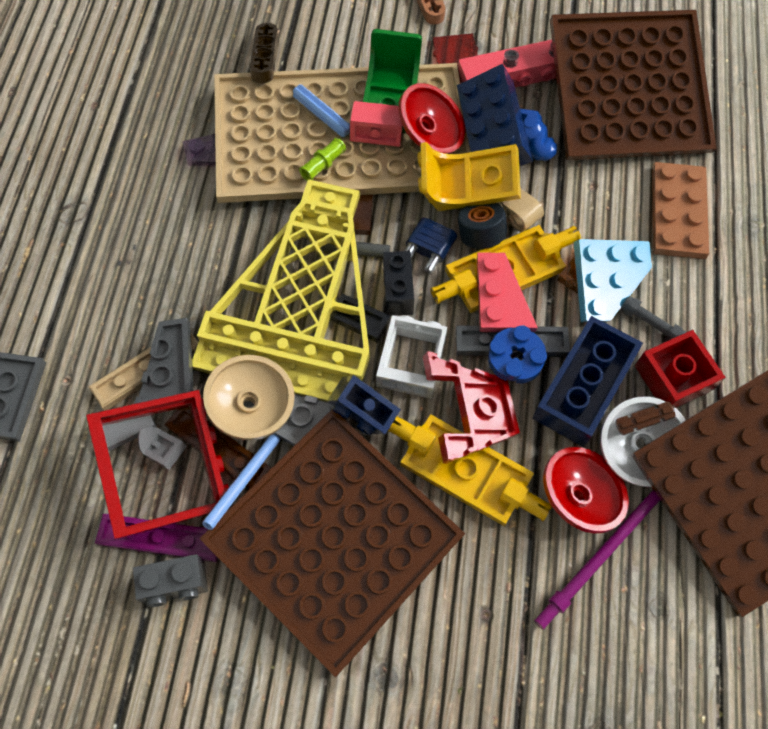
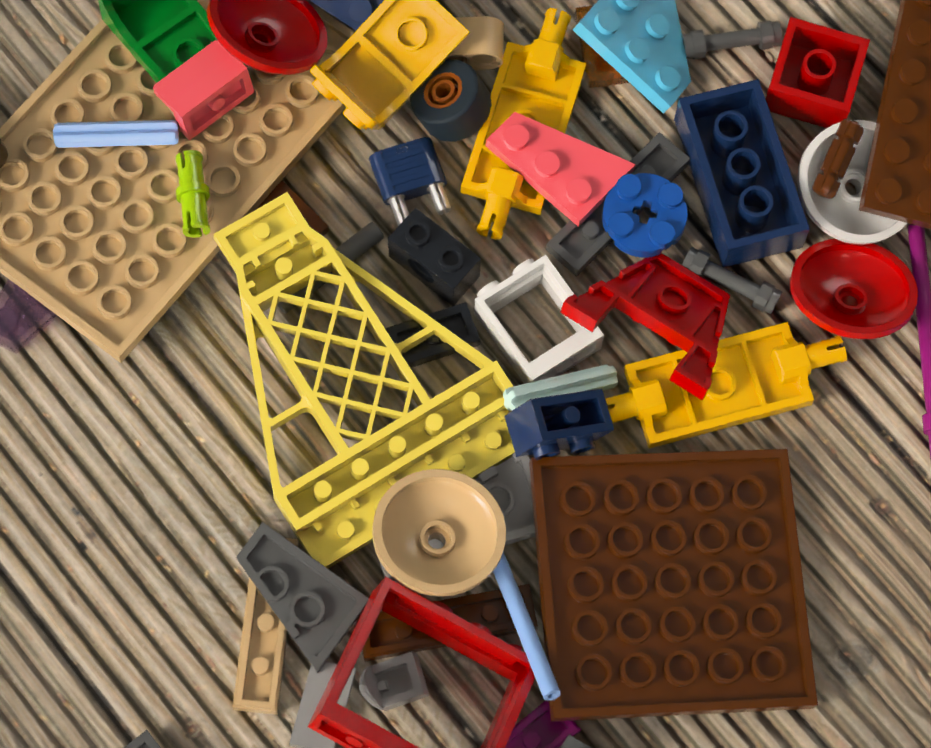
camera: 50 degrees left, 5 degrees up
(407, 405) = (598, 377): none -> light aqua axle
(537, 451) = (764, 296): none -> dark grey bar

